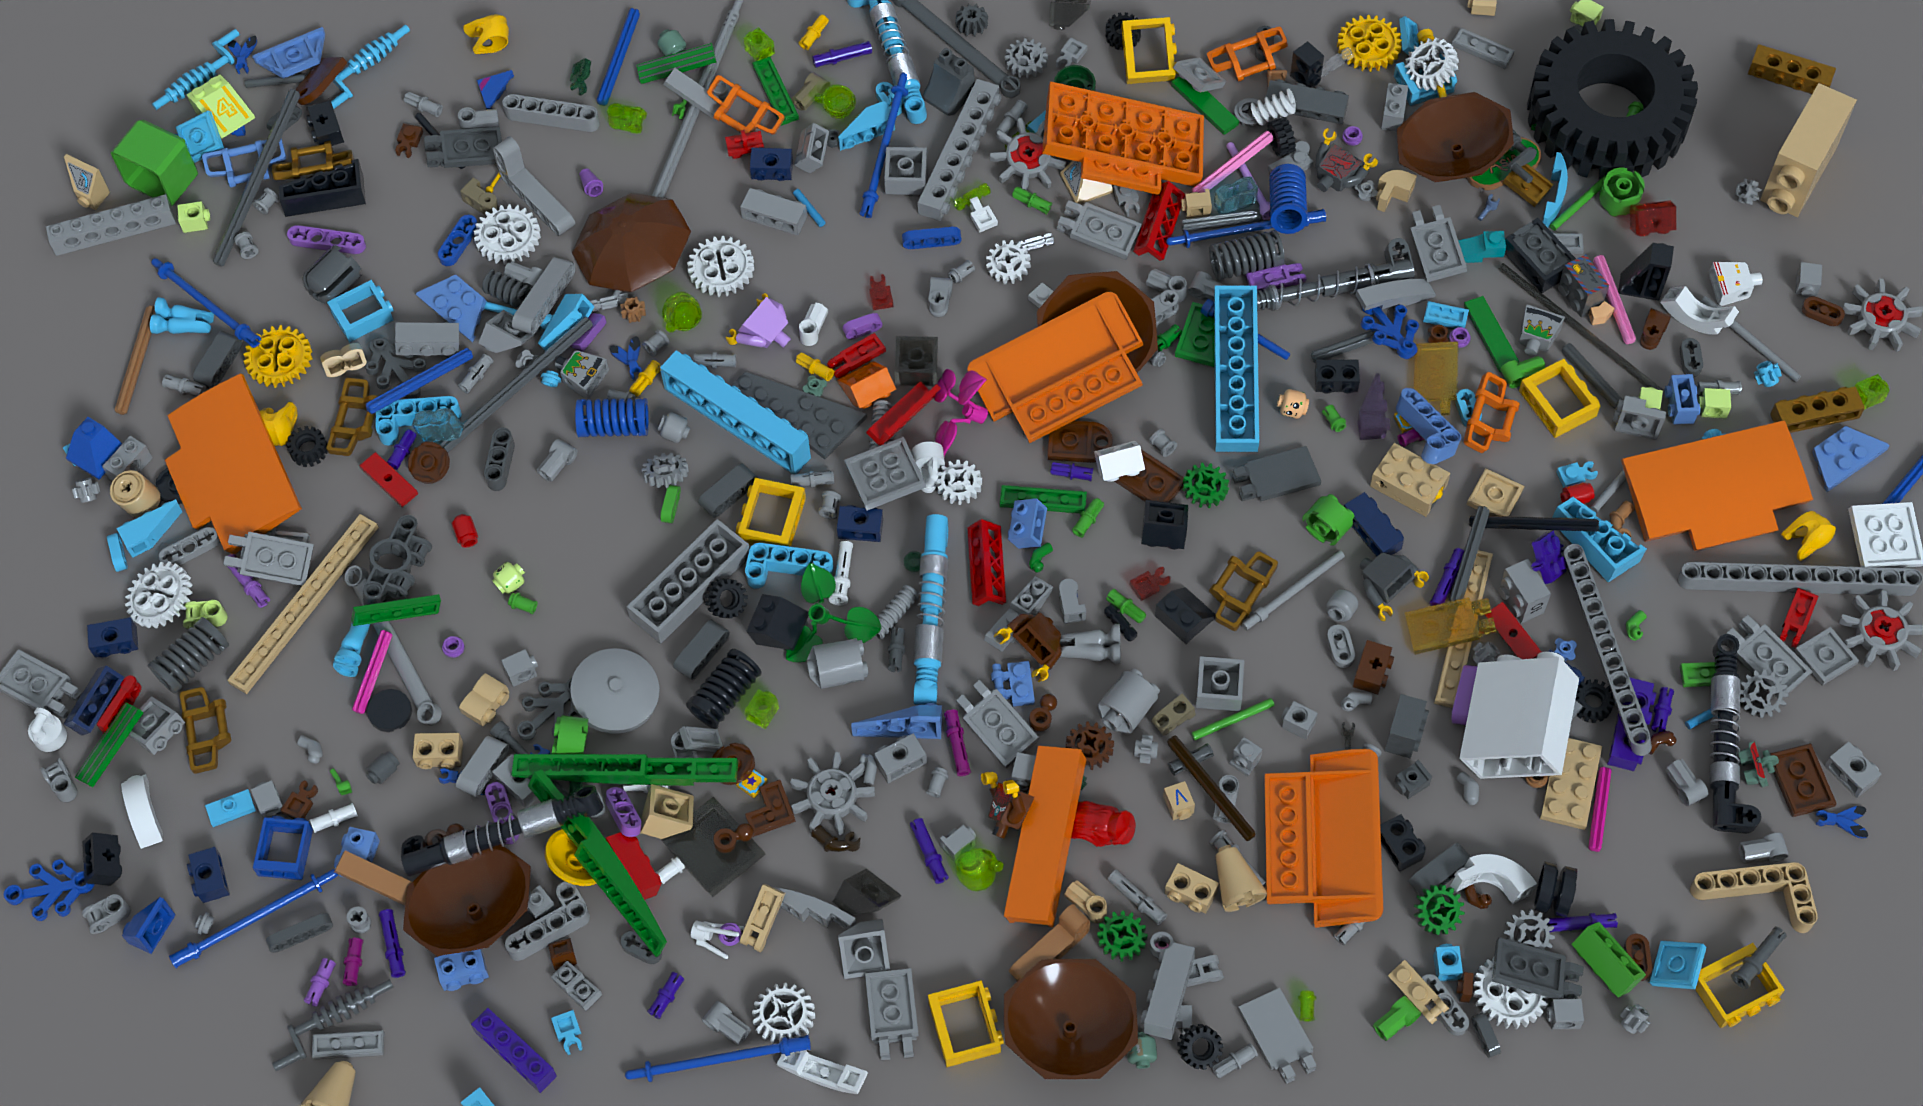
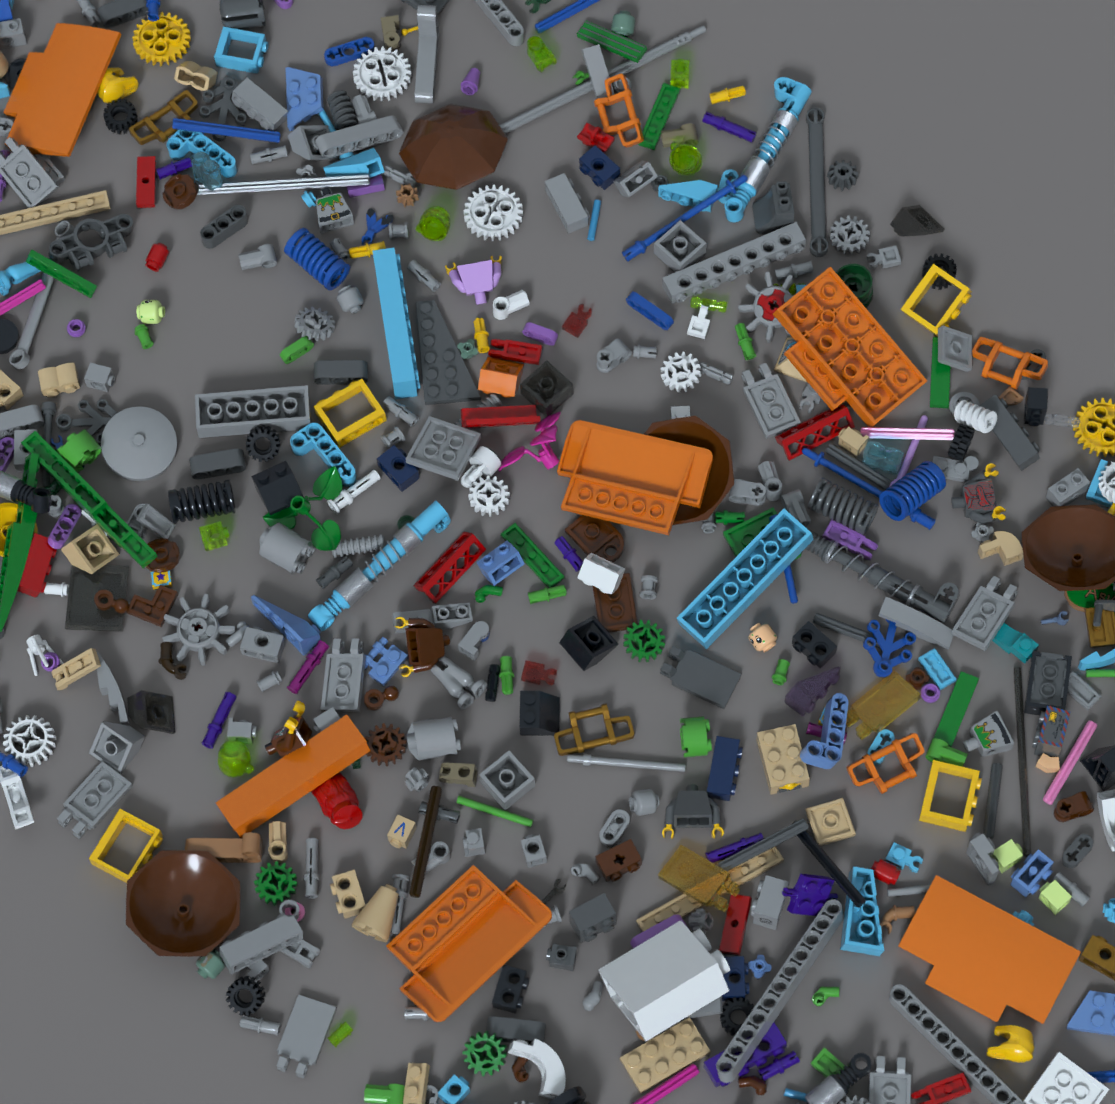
camera: 45 degrees right, 5 degrees up
(1354, 132) = (1016, 480): medium lavender plate -> none

